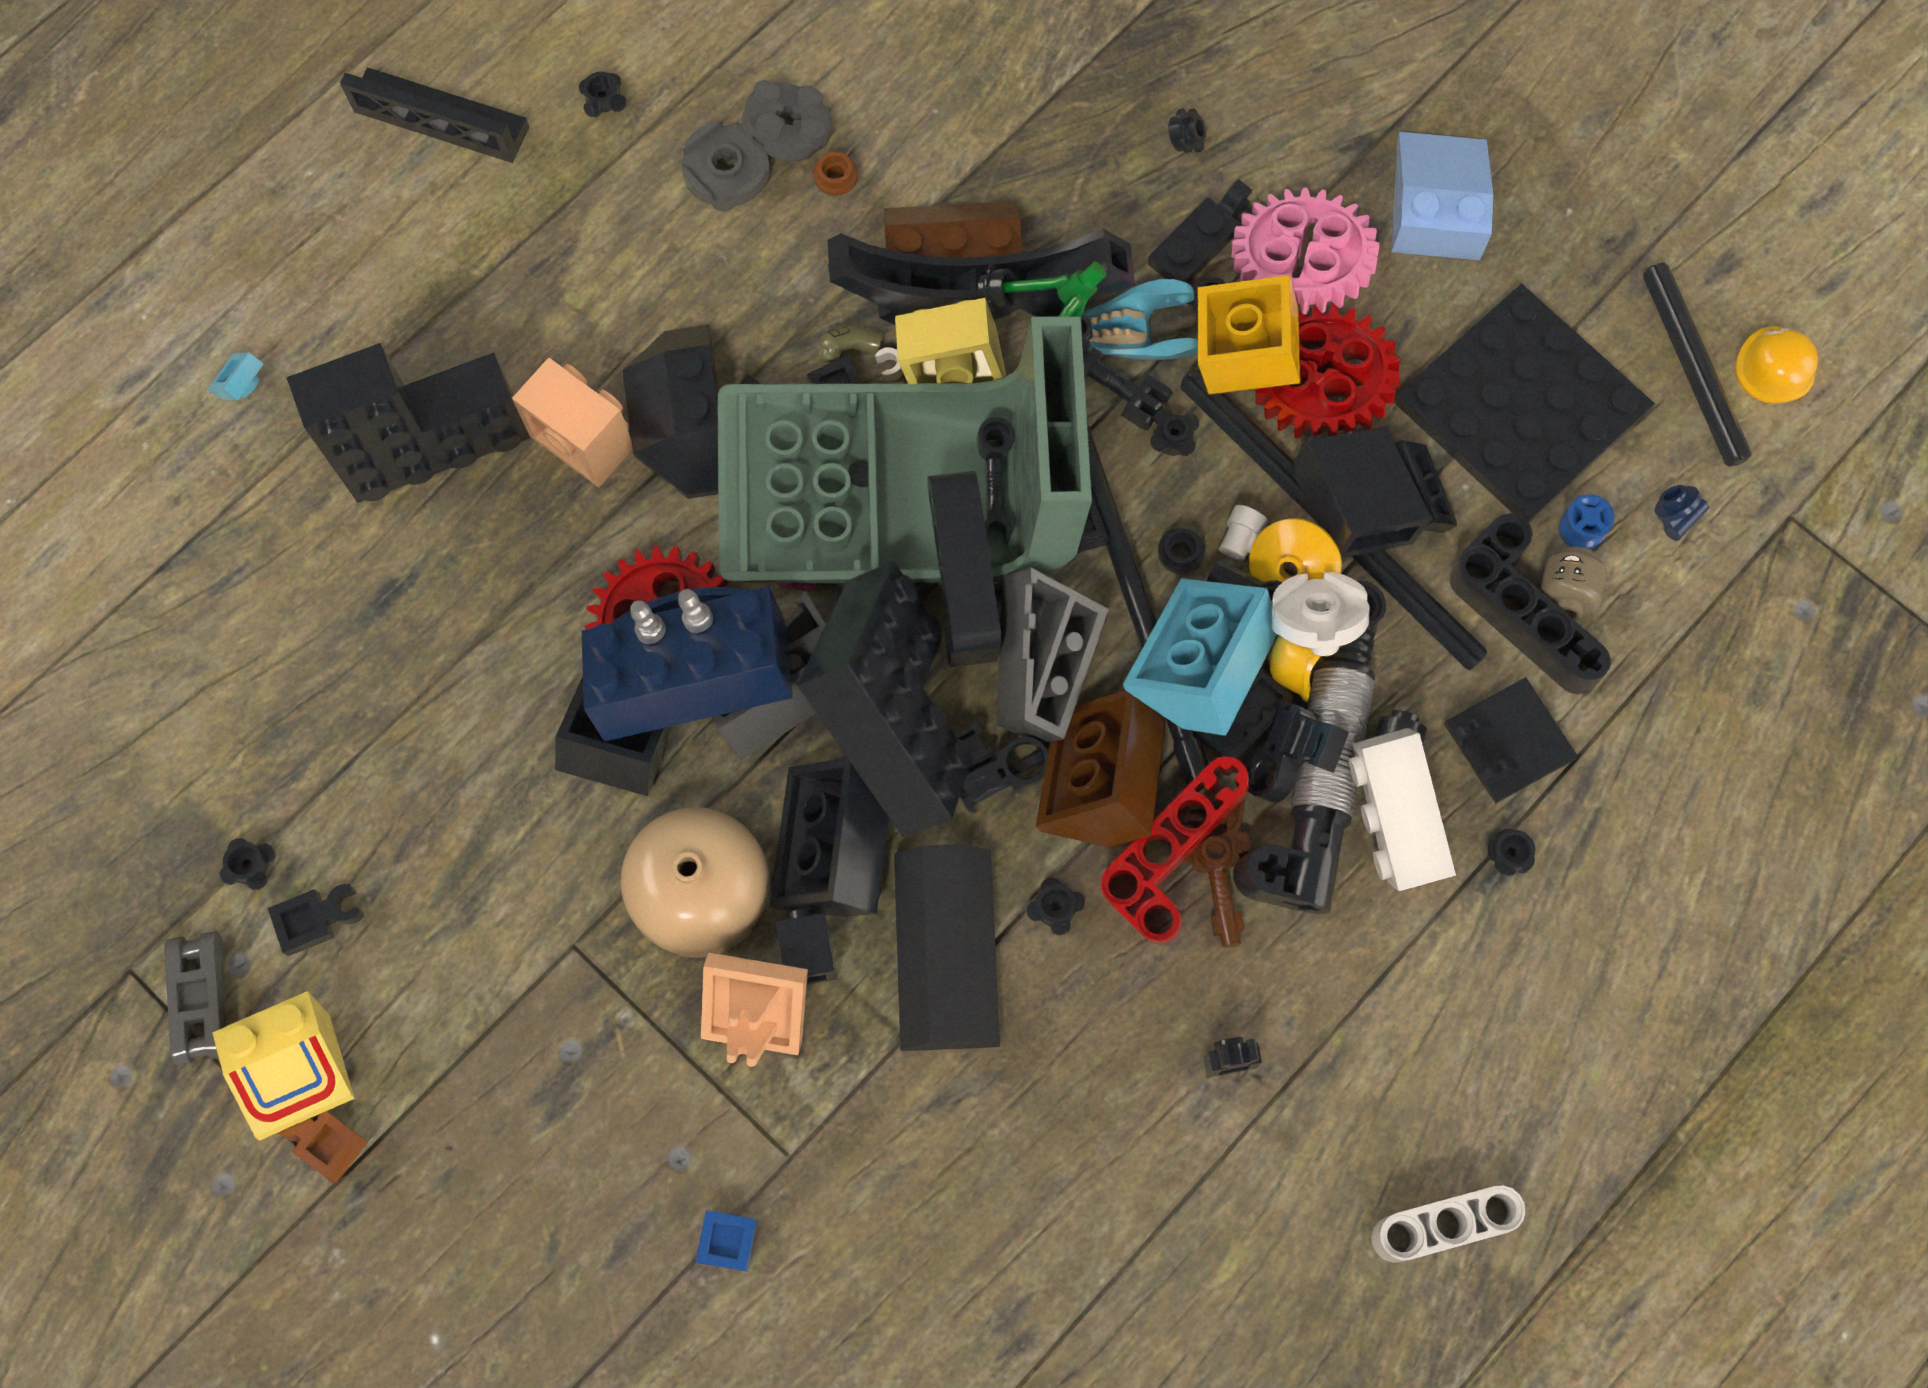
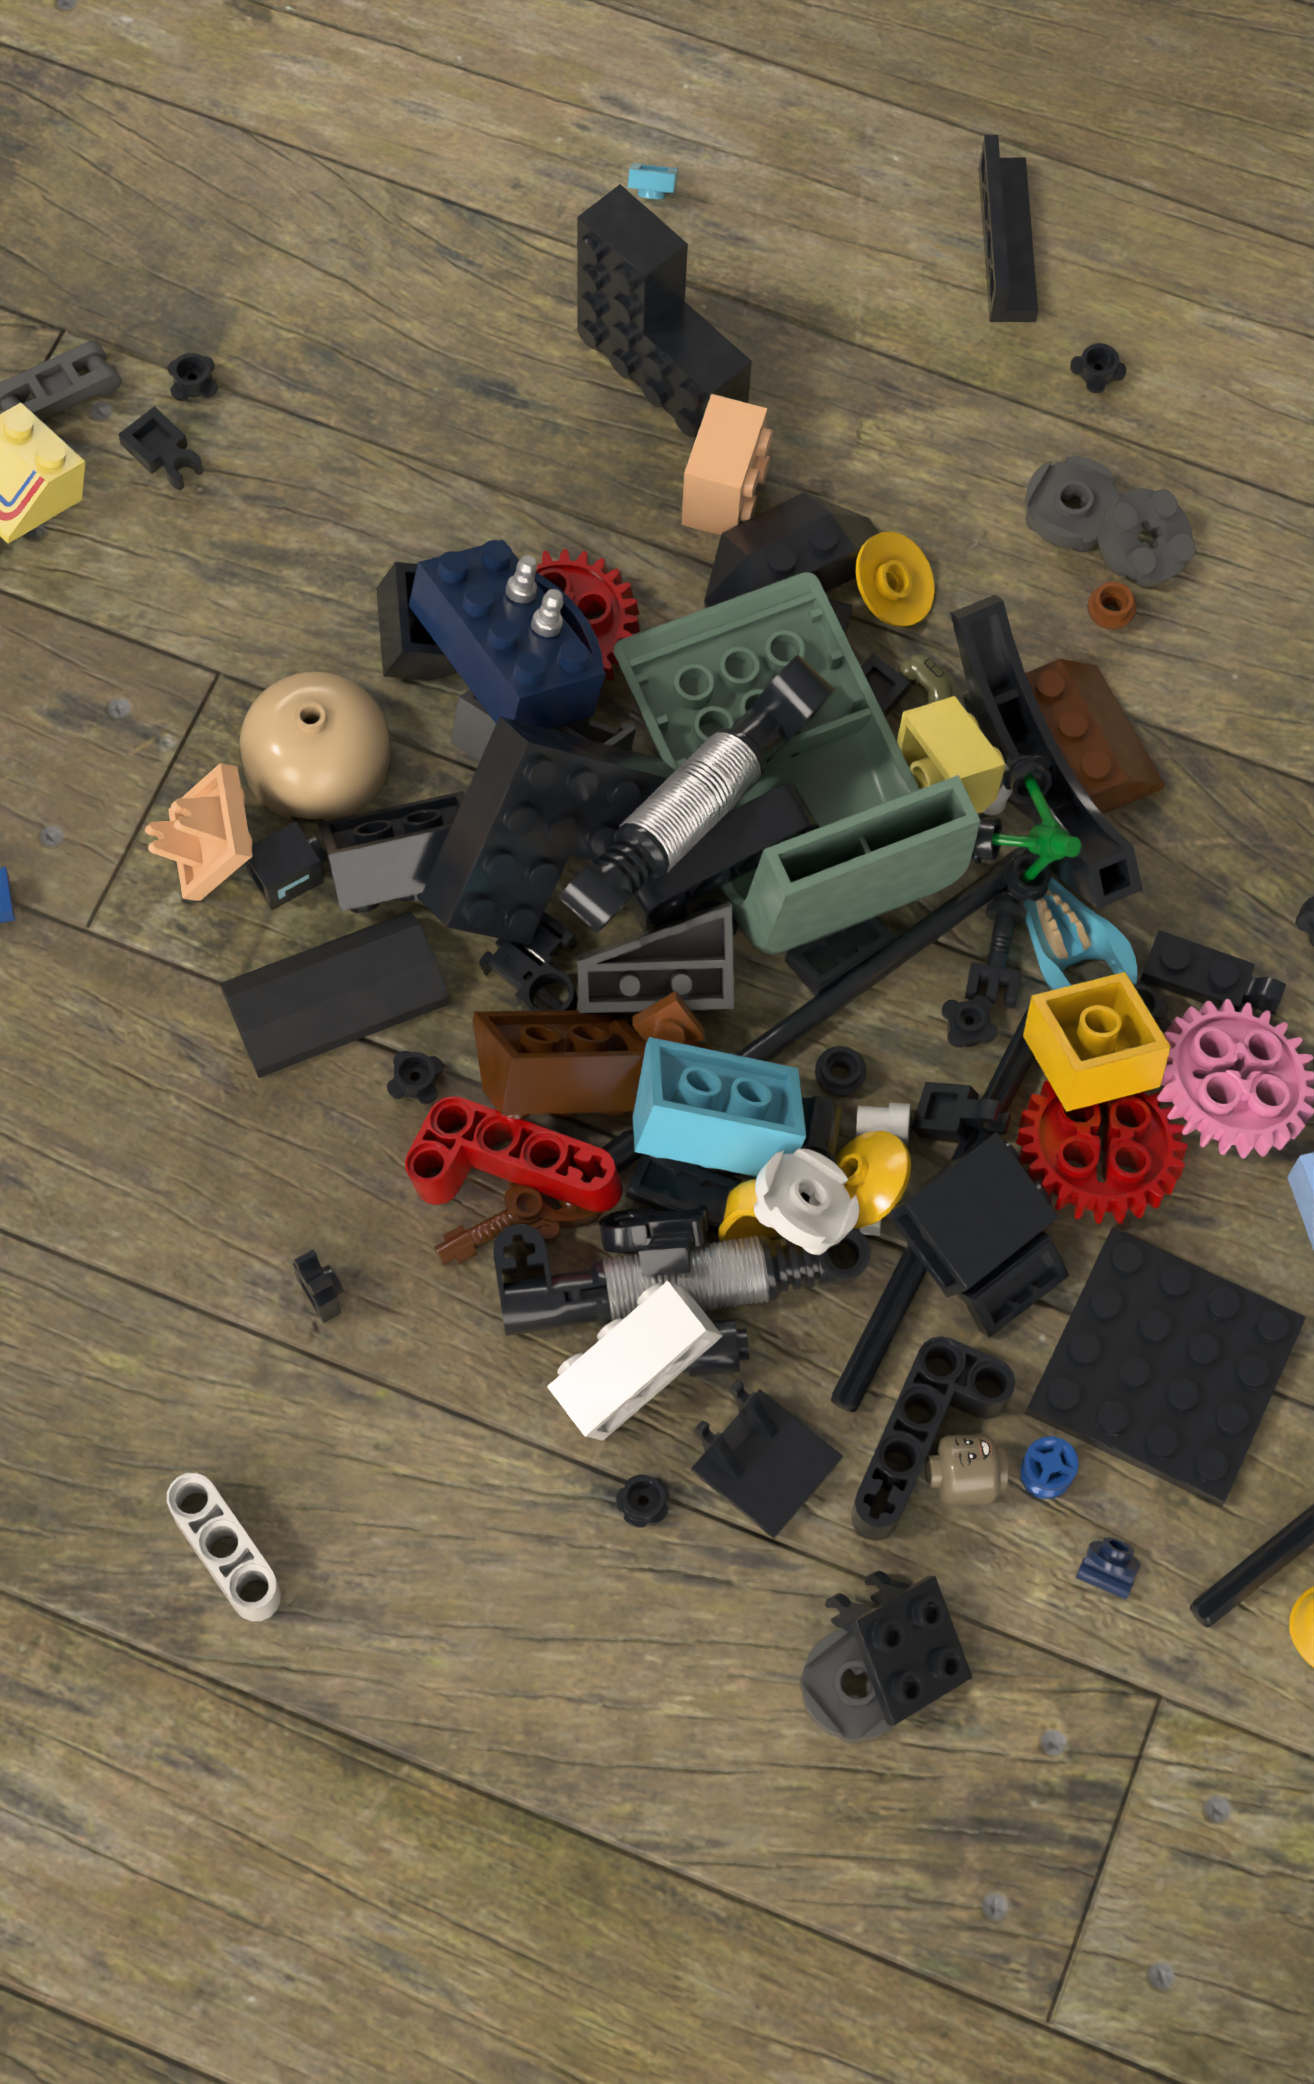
camera: 65 degrees right, 5 degrees down
(741, 329) = (895, 579): none -> yellow dish
(920, 553) = (696, 796): none -> piece
(1106, 668) = (670, 1021): none -> dark orange plate
(1255, 476) = (950, 1110): none -> black plate
(1716, 684) = (905, 1643): none -> black plate
(1734, 717) = (823, 1694): none -> dark grey plate

